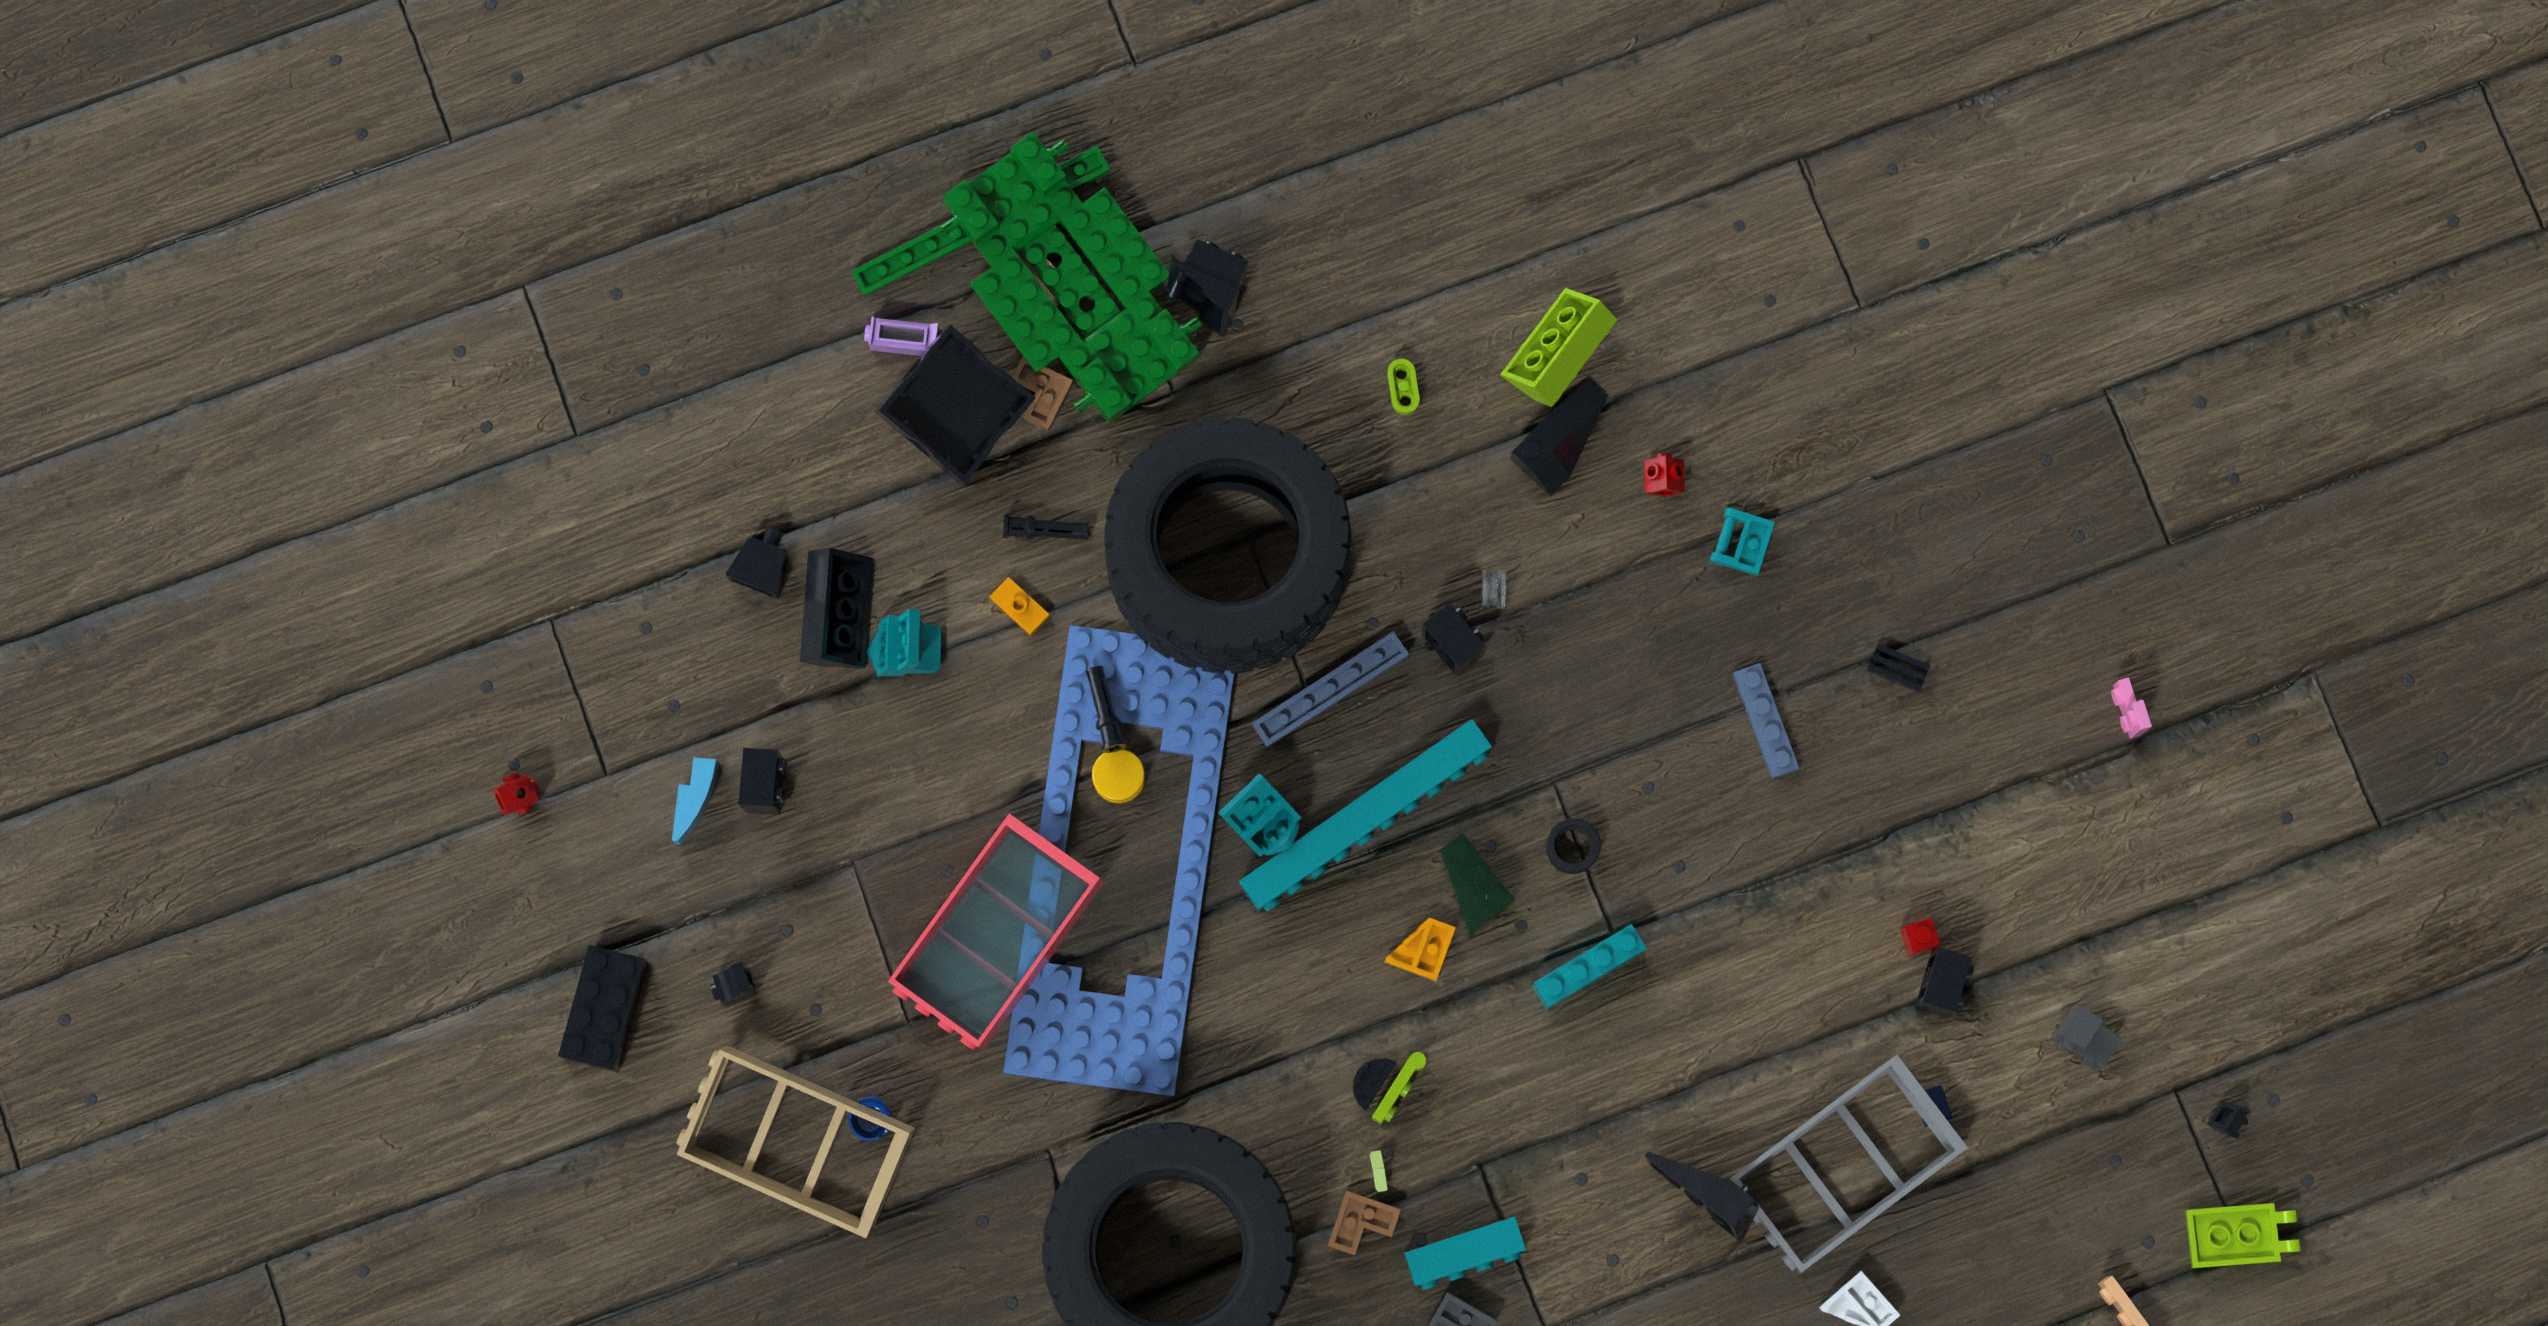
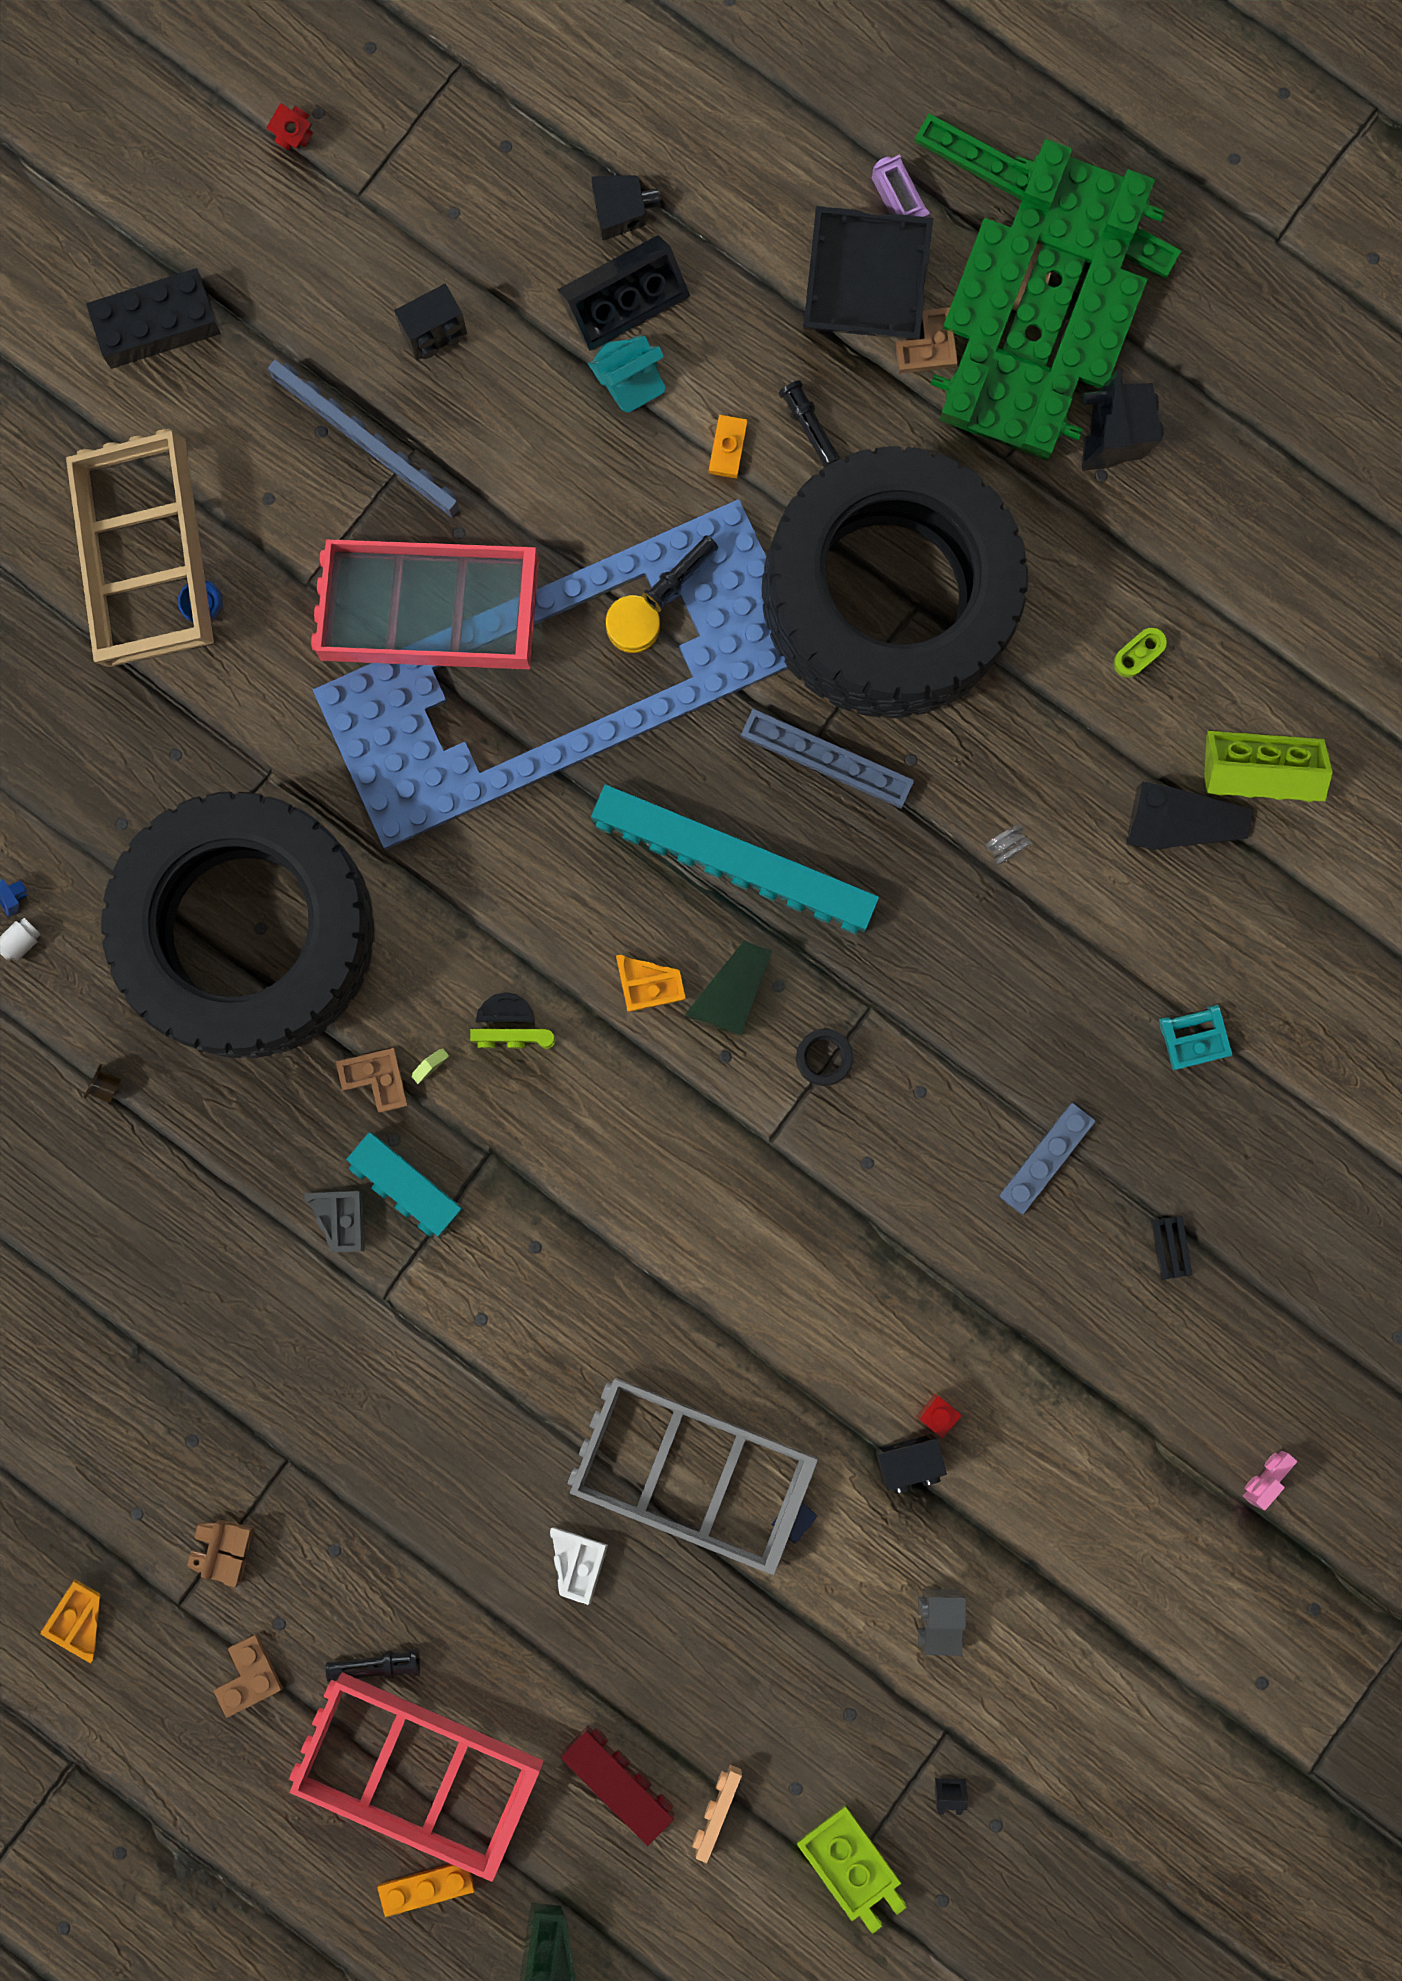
camera: 55 degrees right, 5 degrees up
(694, 798) = (381, 279): medium azure slope -> none
(733, 984) = (244, 413): black arch -> none
(807, 901) = (355, 430): none -> sand blue plate
(1262, 818) = (671, 768): teal piece -> none
(1454, 639) = (939, 836): black brick -> none
(1589, 967) = (724, 1137): teal brick -> none
(1664, 475) = (1210, 931): red brick -> none
(1725, 1201) = (590, 1381): black wedge -> none

